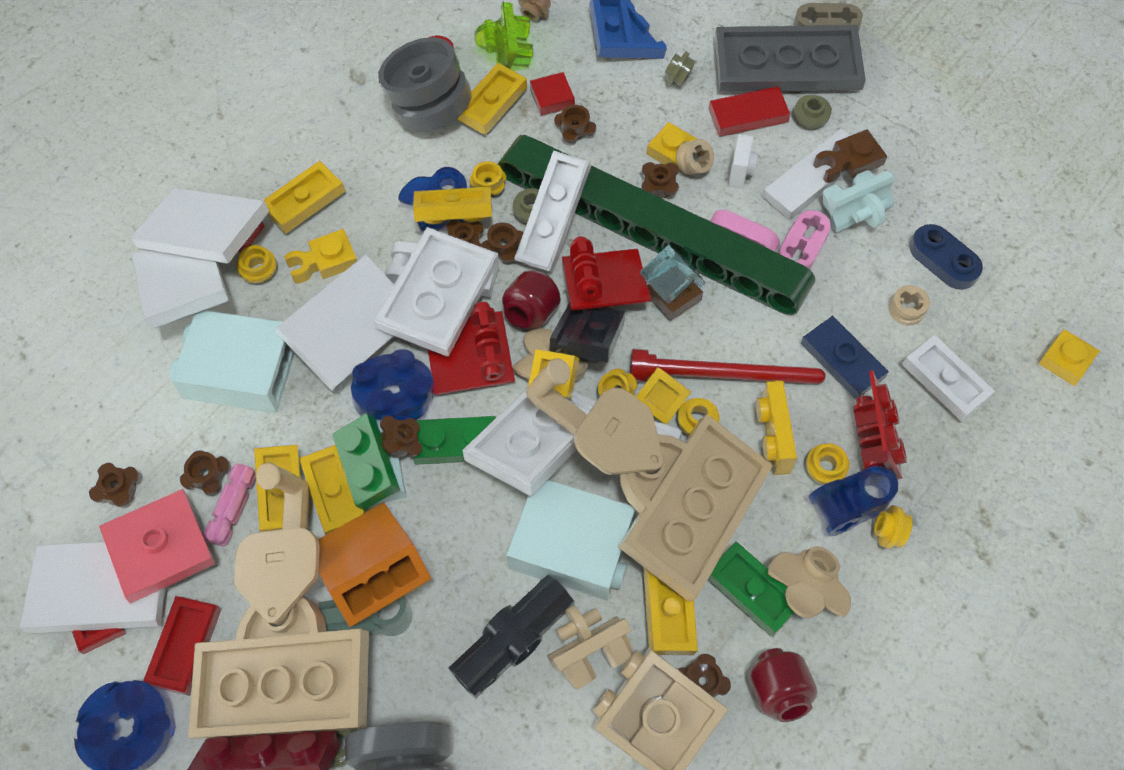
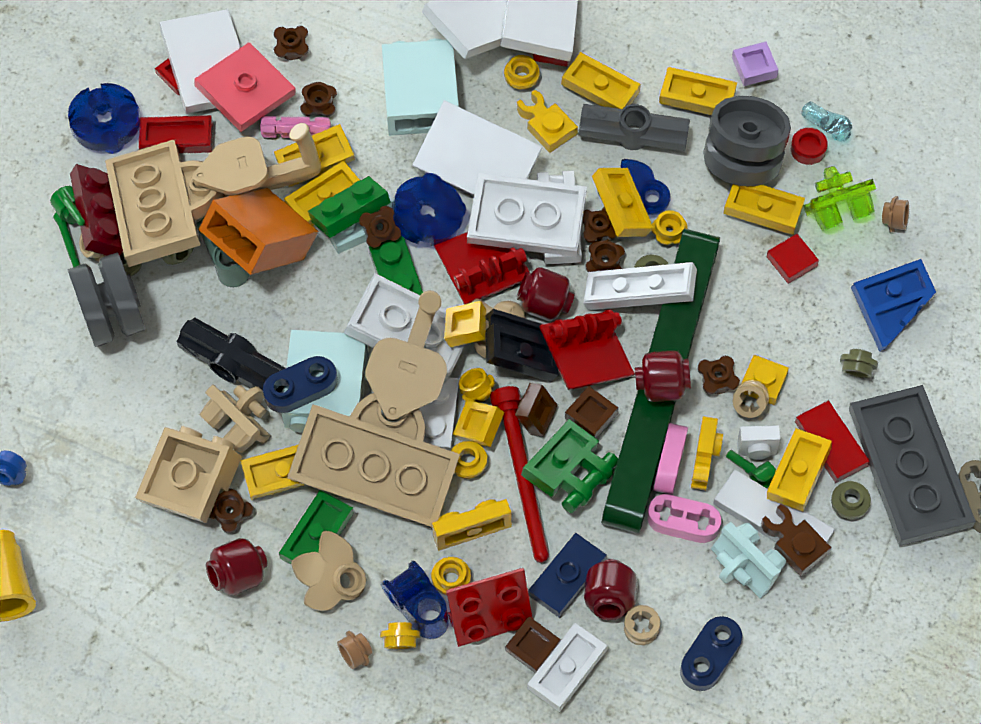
camera: 75 degrees right, 0 degrees up
(333, 67) = (755, 63): none -> lavender plate
(346, 119) = (694, 90): none -> yellow plate
(365, 179) = (653, 129): none -> dark grey piece
(424, 24) = (828, 121): none -> clear light blue arm
(575, 115) = (763, 277): reddish brown plate -> none
(584, 555) = (302, 385): none -> dark blue plate
(659, 340) = (536, 409): none -> reddish brown plate
(670, 274) = (602, 400): clear light blue panel -> none
(673, 203) = (663, 376): none -> dark red head
(724, 330) = (561, 457): none -> green plate
(741, 202) = (708, 445): none -> yellow plate
(772, 169) = (762, 474): none -> green hand
(782, 135) = (799, 469): none -> yellow plate
(874, 318) = (610, 589): none -> dark red head
(899, 578) = (355, 649): none -> medium nougat plate
(921, 402) = (532, 644): none -> reddish brown plate

